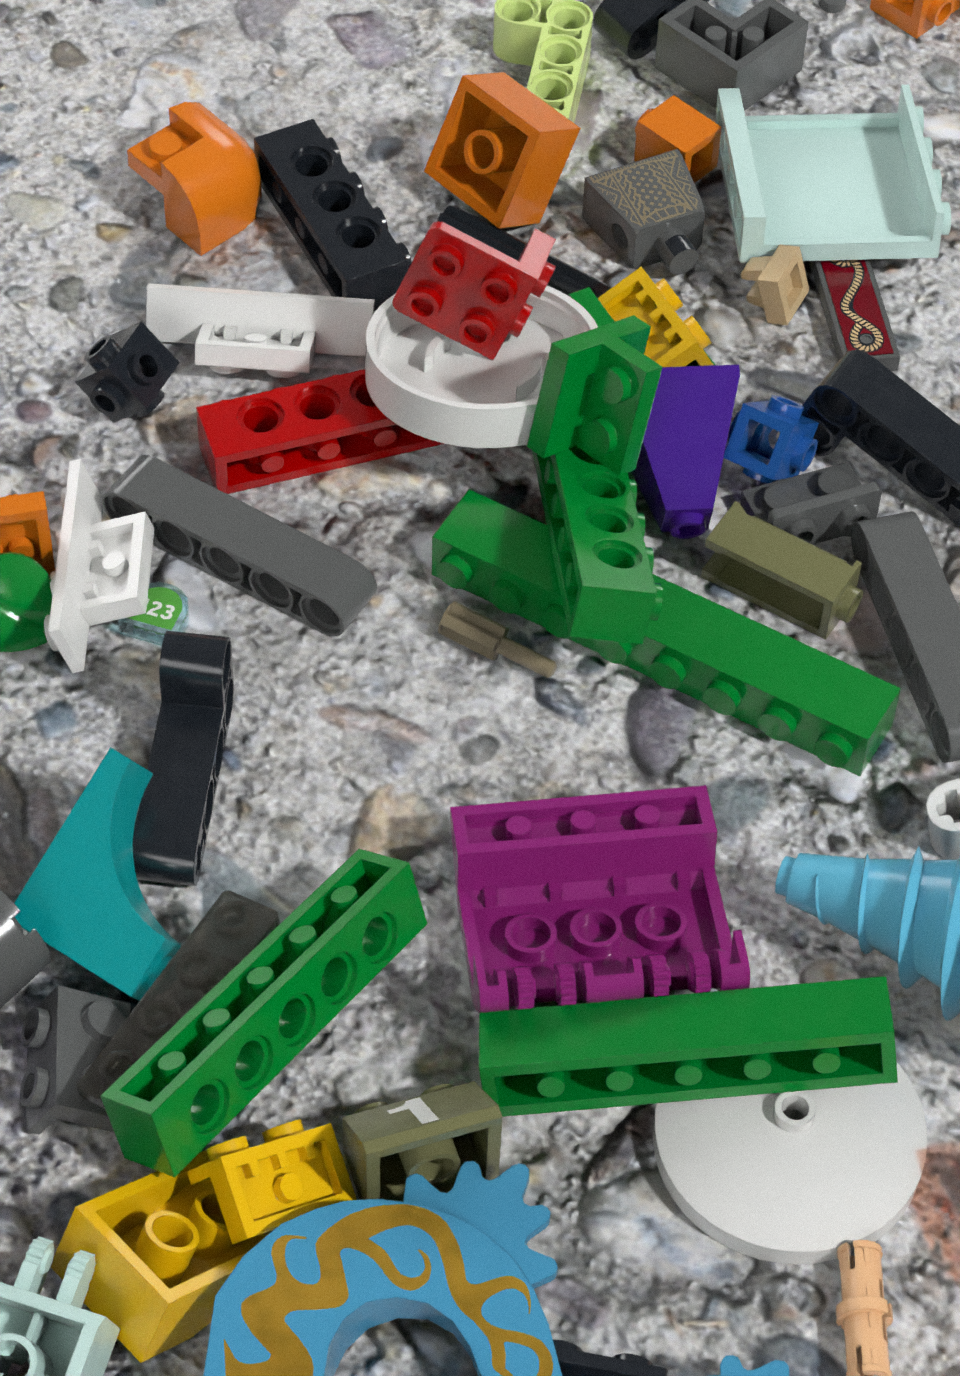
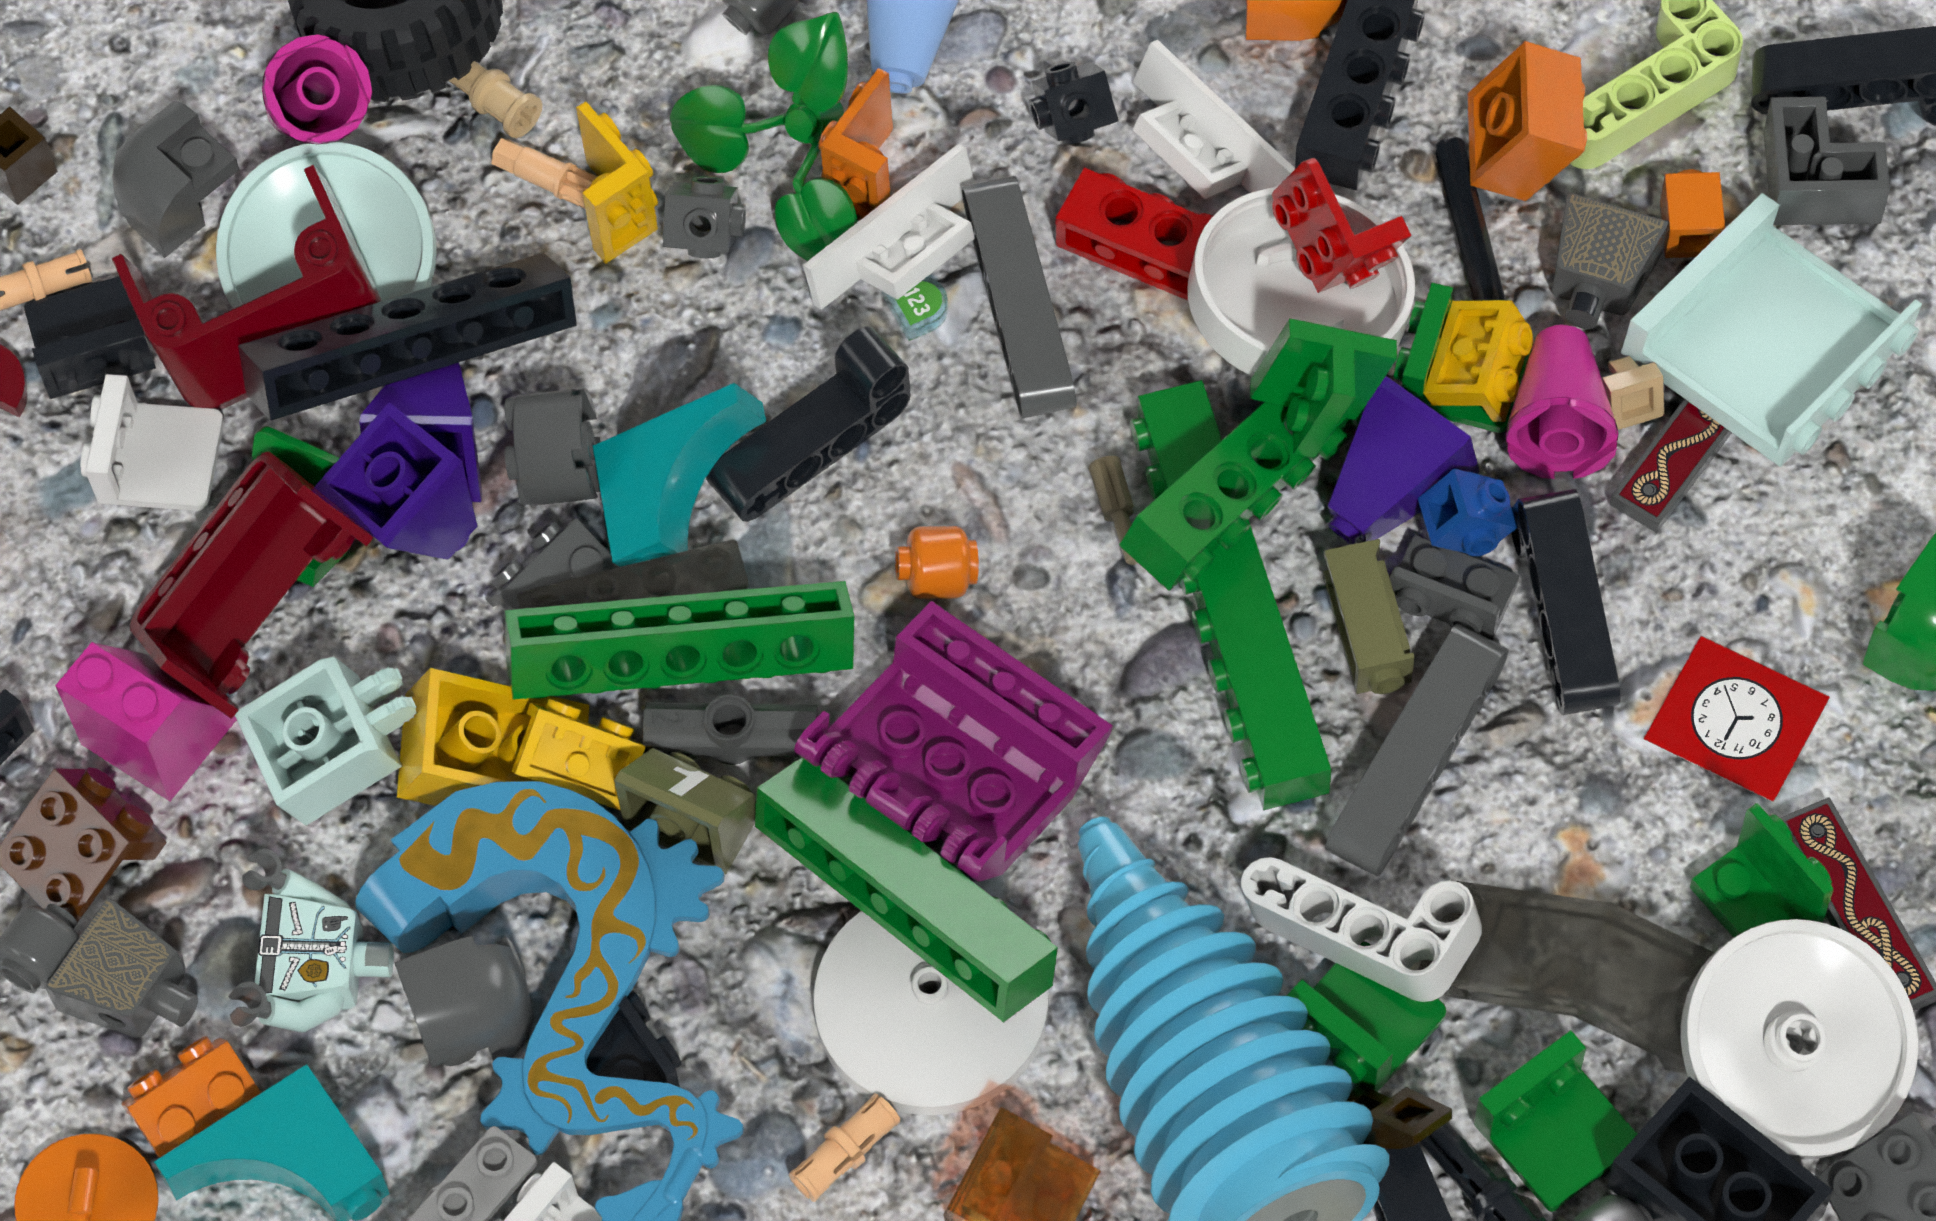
camera: 50 degrees right, 10 degrees up
(406, 785) = (937, 562): none -> orange head
(407, 1030) = (696, 727): none -> dark grey piece
(752, 320) = (1561, 409): none -> dark pink cone

